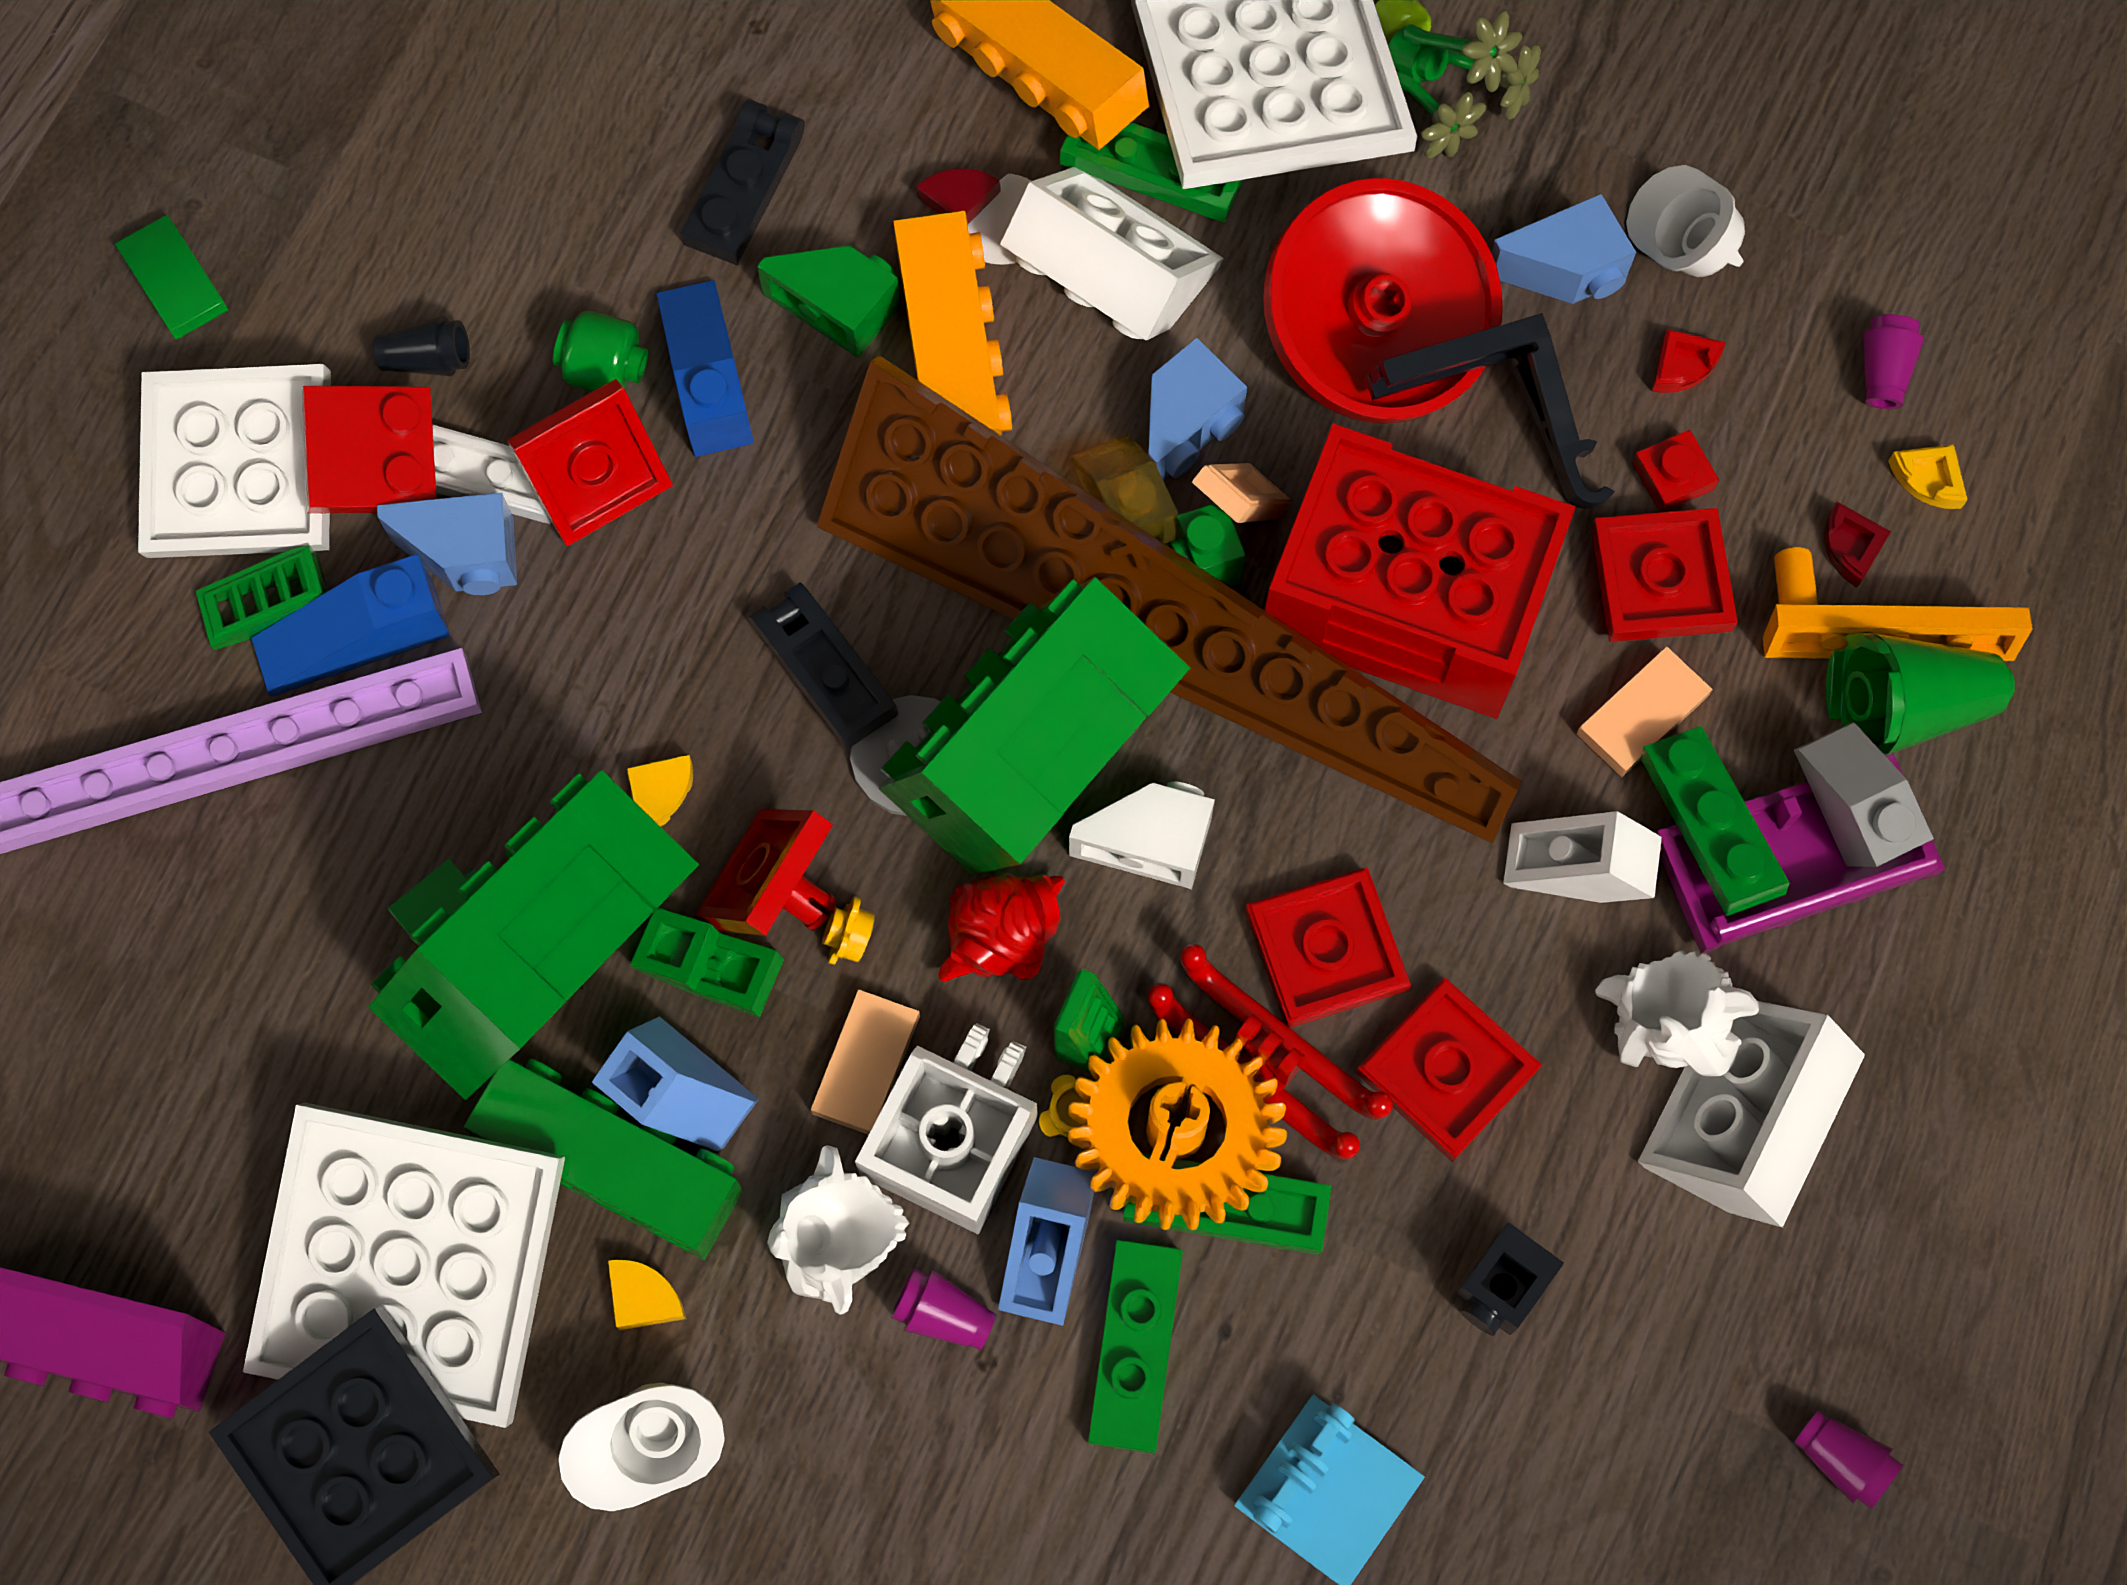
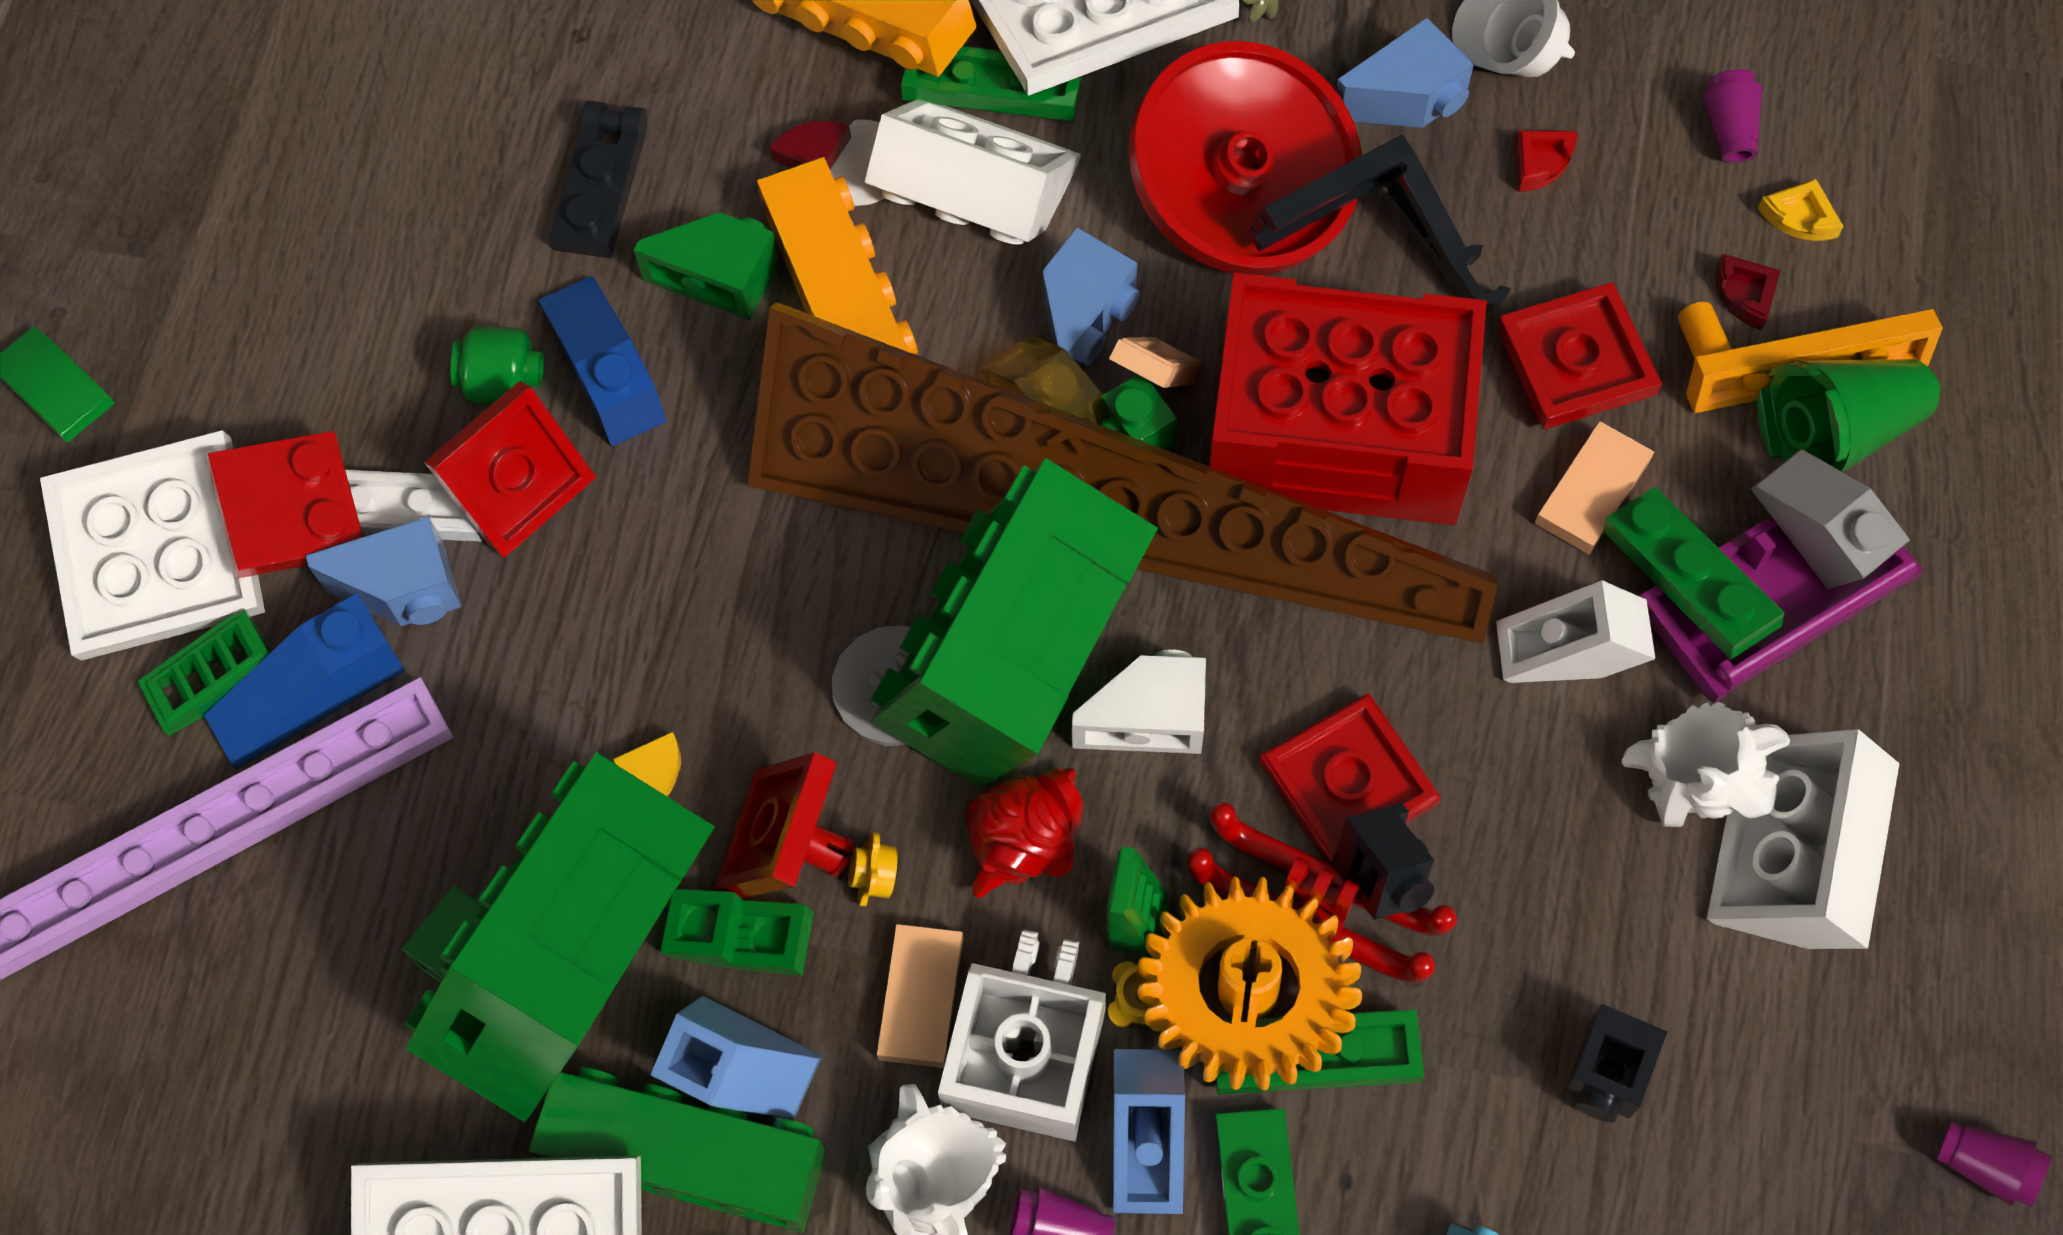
camera: 10 degrees left, 5 degrees down
(424, 348) = (319, 398): black cone -> none
(824, 666) = (788, 616): black plate -> none
(1337, 1037) = (1385, 861): none -> black brick
(1448, 1069) = (1502, 870): red tile -> none
(1675, 471) = (1562, 258): red plate -> none

